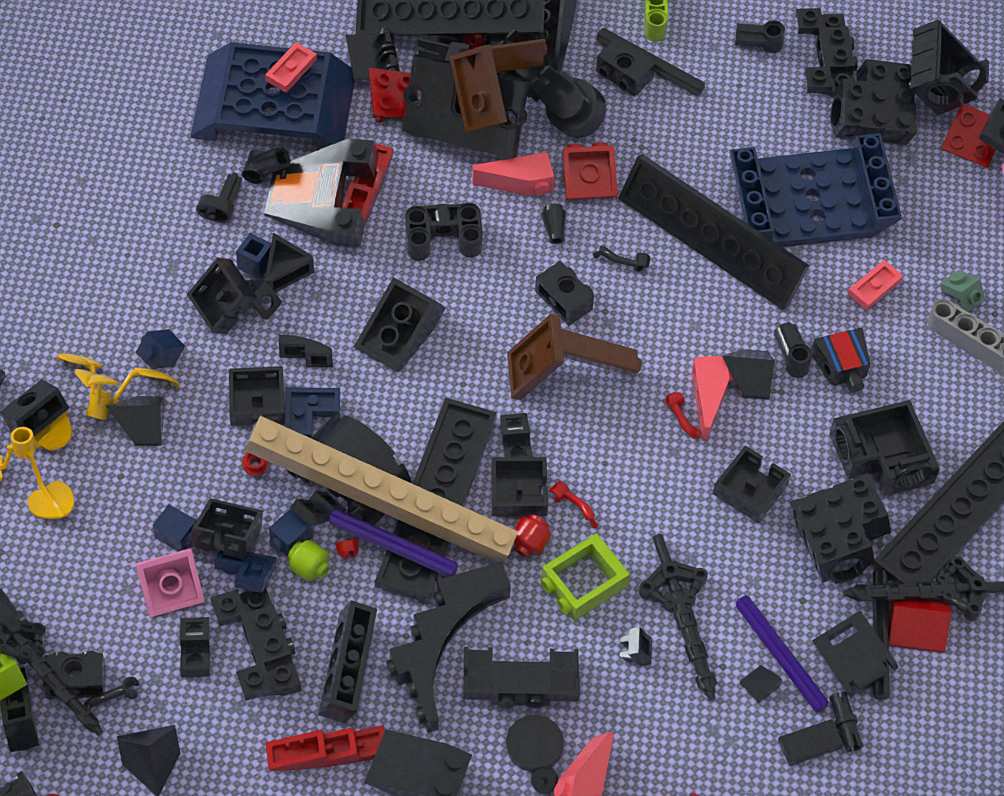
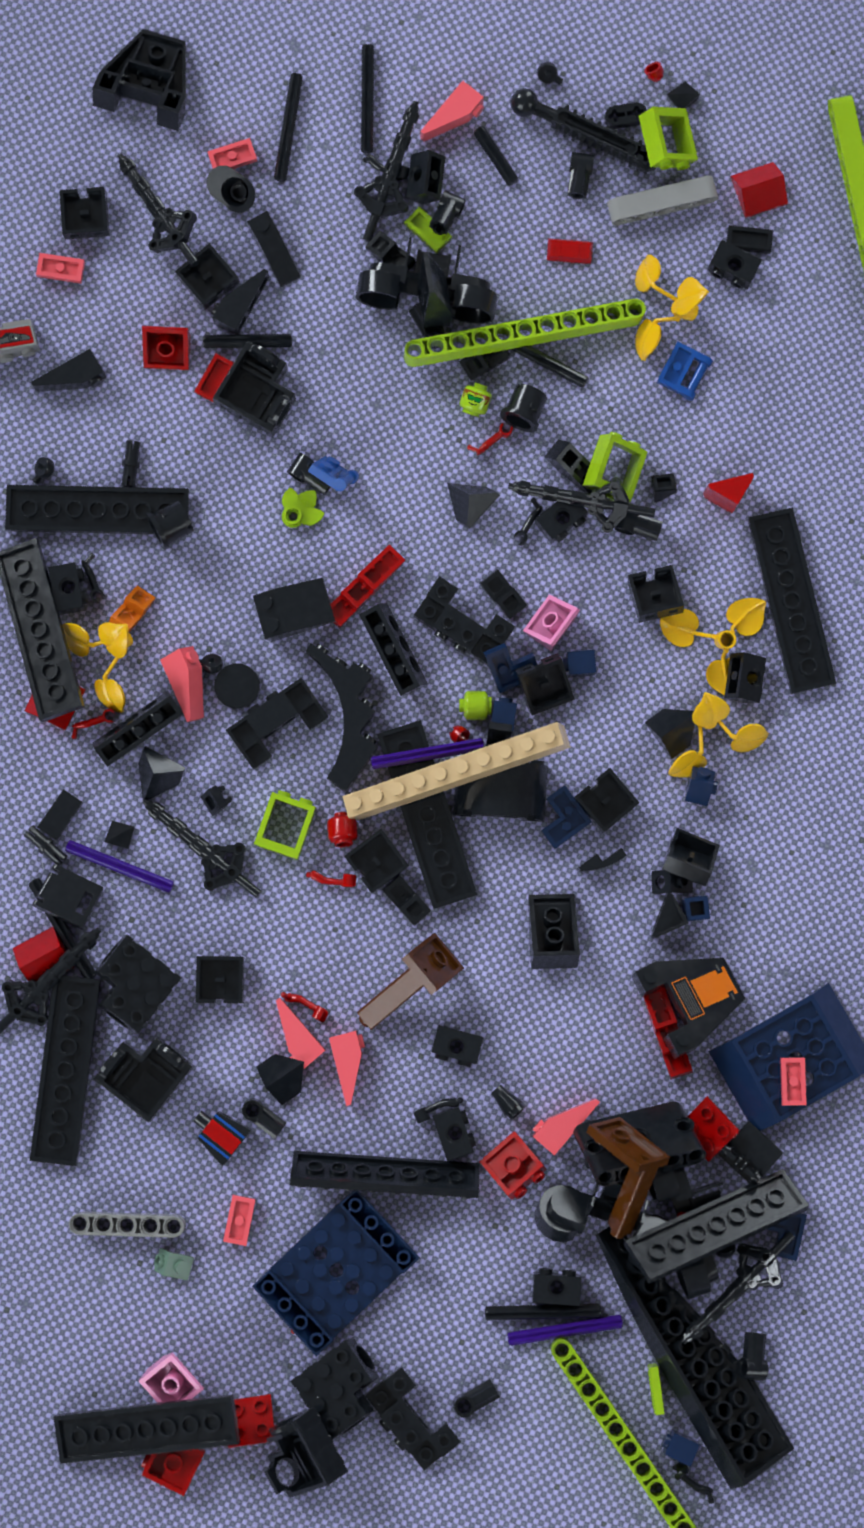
camera: 145 degrees right, 25 degrees up
(48, 537) = (655, 597): none -> black piece
(220, 208) = (754, 937): black piece -> none
(258, 470) = (570, 760): red plate -> none
(264, 163) = (752, 993): black piece -> none
(443, 221) = (589, 1041): black beam -> none
(628, 216) = (454, 1147): none -> black brick
(643, 39) = (565, 1330): none -> dark purple axle
(670, 763) = (137, 728): none -> black brick
(676, 343) = (347, 1057): none -> coral slope
(680, 713) = (158, 773): none -> black slope

